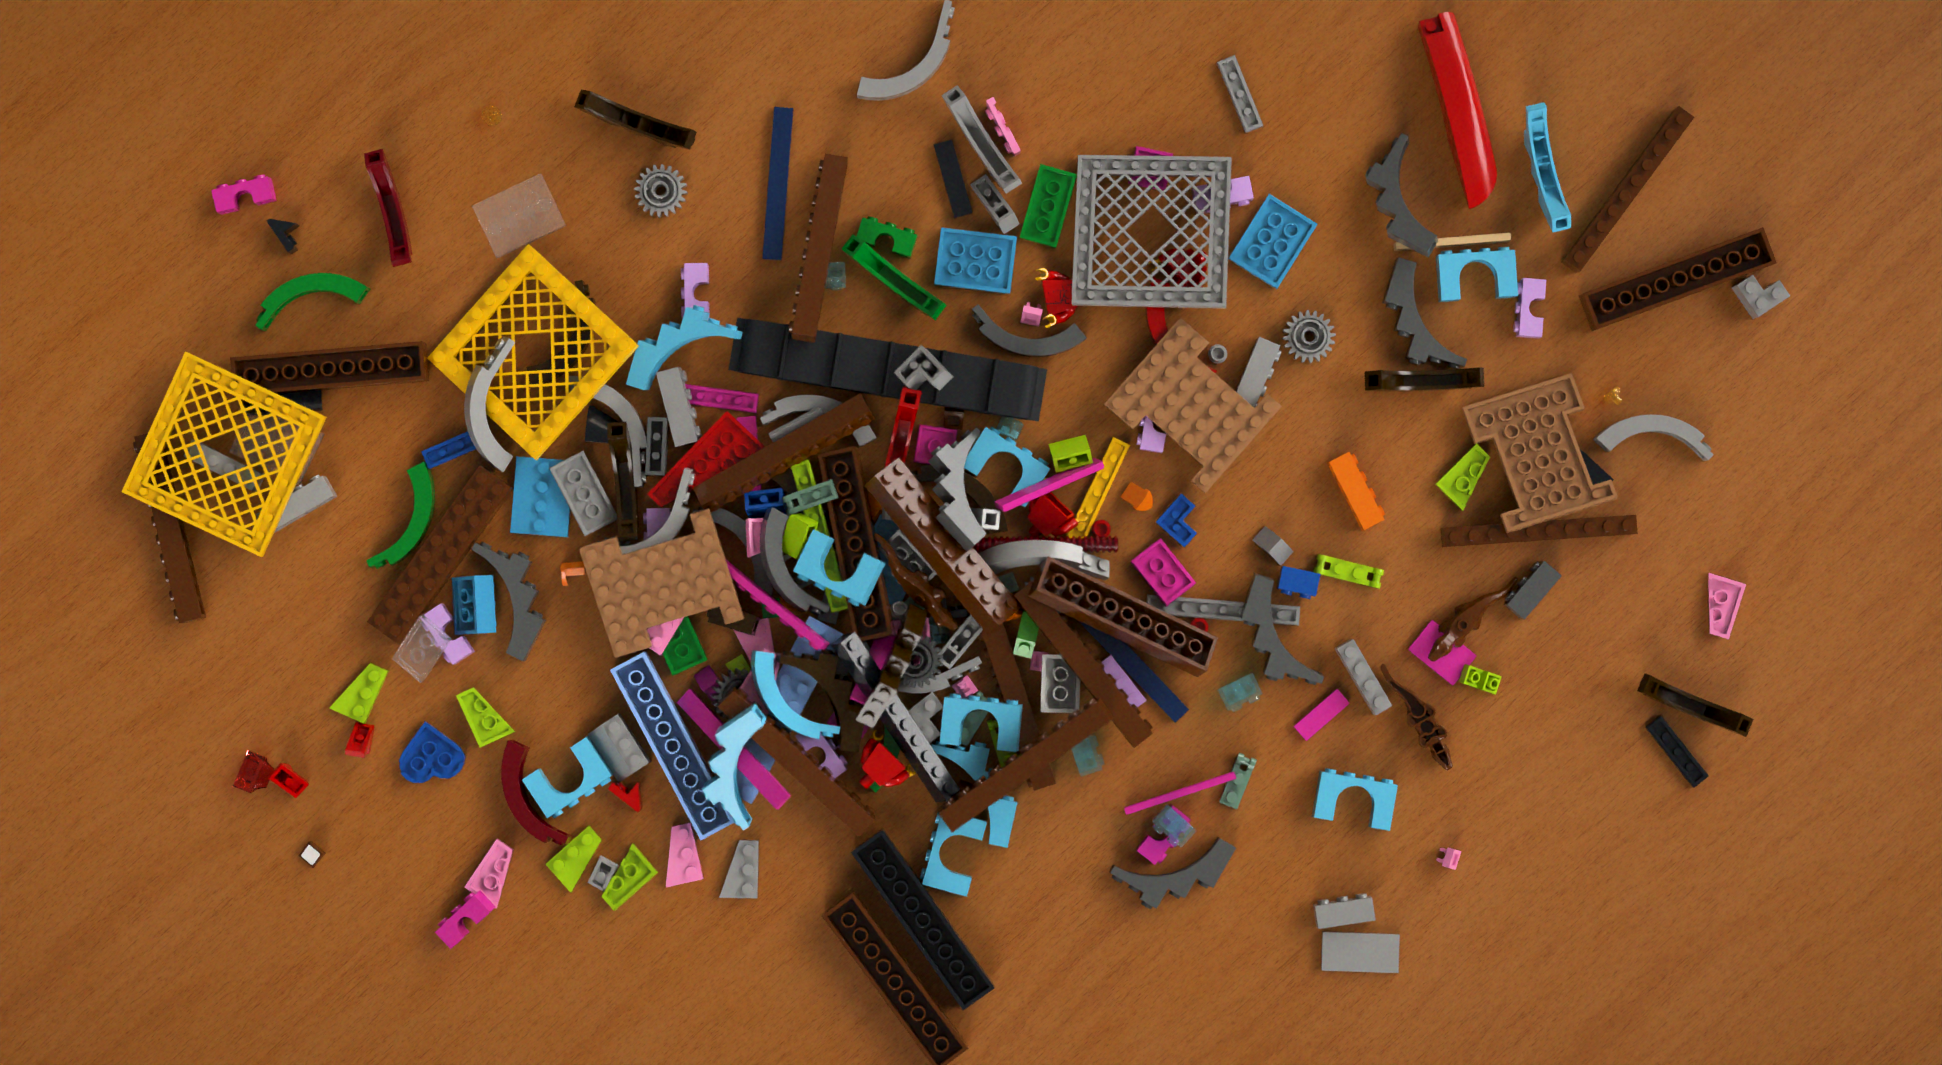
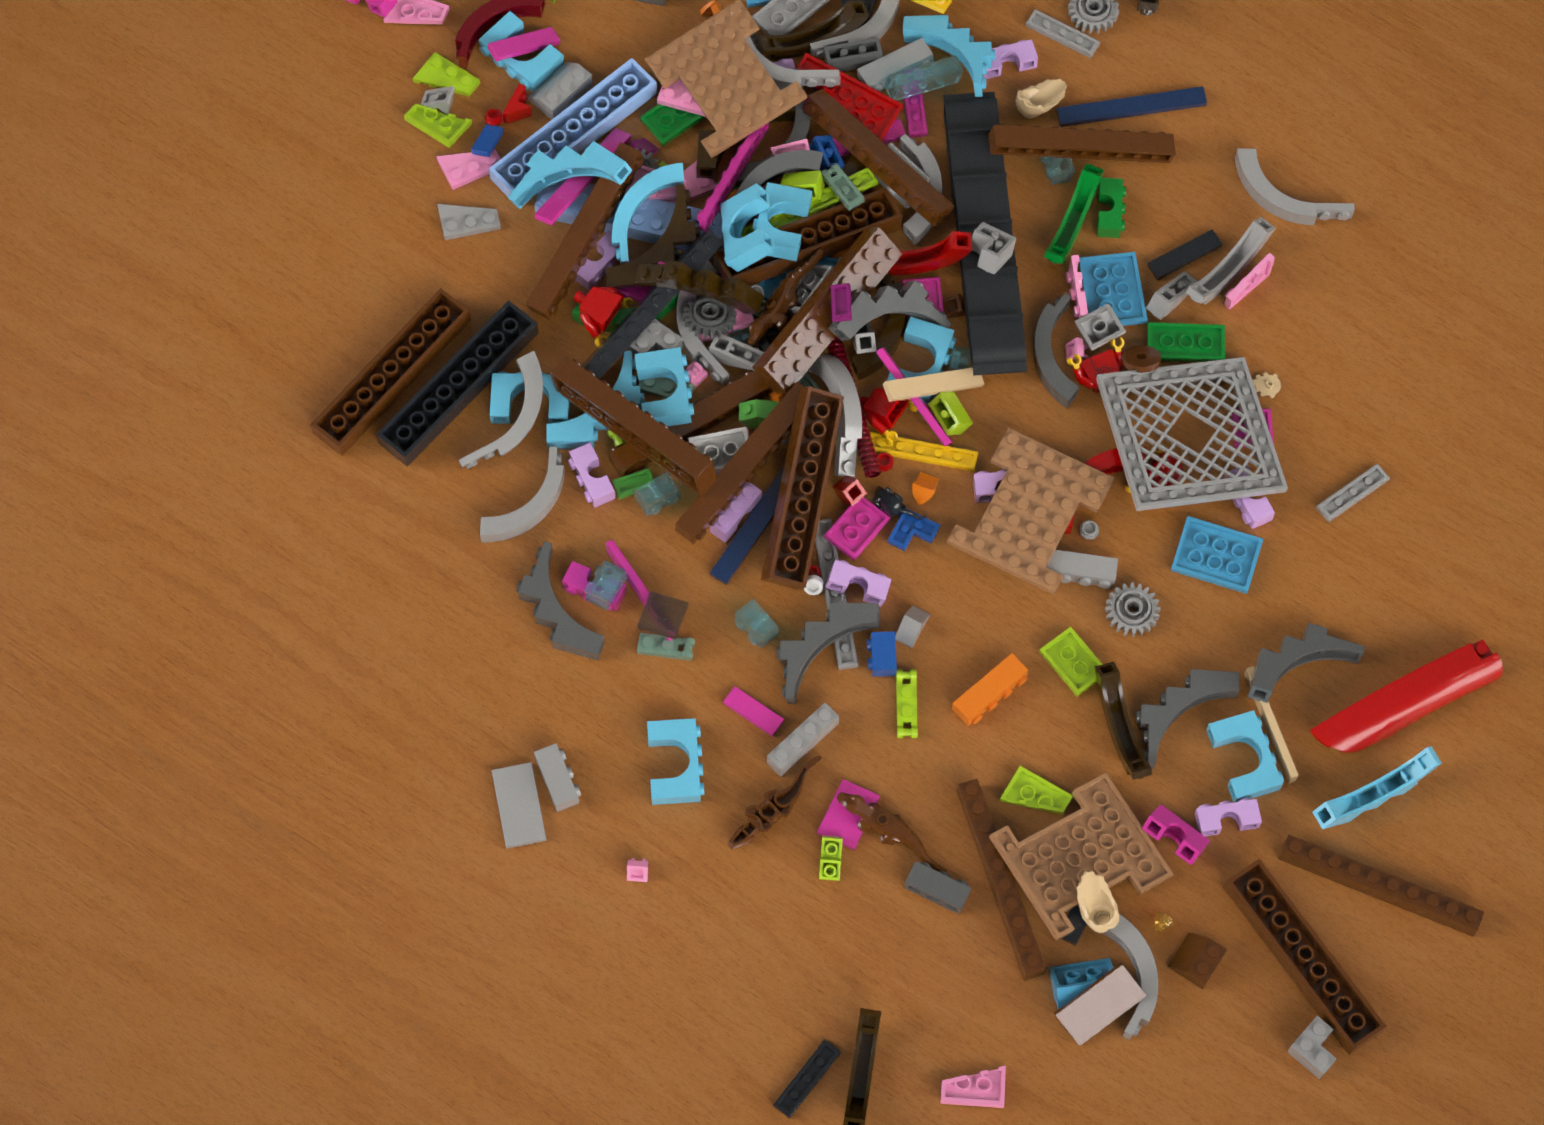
camera: 75 degrees right, 20 degrees down
(562, 773) = (523, 44): none -> dark pink tile
(635, 821) = (493, 117): none -> red plate
(661, 833) = (487, 140): none -> blue tile
(678, 228) = (1062, 33): none -> light grey tile
(701, 382) = (924, 78): none -> clear light blue brick
(748, 271) = (1040, 98): none -> tan hair
(823, 612) = (735, 214): none -> medium azure arch
(951, 534) = (841, 302): none -> magenta tile
(971, 298) = (1075, 280): none -> bright pink wing
(982, 864) = (533, 388): none -> light grey arch
(1018, 285) = (1100, 327): none -> light grey slope
(1033, 817) = (597, 489): none -> lavender arch
(1043, 466) = (932, 384): none -> tan tile
(1052, 253) = (1141, 358): none -> reddish brown tile
(1065, 773) = (627, 484): none -> bright green tile
(1081, 896) = (523, 519): none -> light grey arch
(1109, 141) = (1267, 384): none -> tan piece
(1126, 570) = (849, 490): none -> red brick
(1148, 534) = (892, 503): none -> black animal
(1213, 627) = (814, 585): none -> white tile
(1218, 779) = (663, 615): none -> clear smoke tile
(1229, 571) = (874, 585): none -> lavender arch
(1345, 406) = (1072, 661): none -> lime plate
(1547, 349) = (1166, 824): none -> dark pink arch
(1596, 453) = (1097, 903): none -> tan hair
(1652, 482) = (1074, 978): none -> dark azure slope
(1654, 374) = (1197, 959): none -> reddish brown slope
(1680, 474) = (1100, 1004): none -> tile

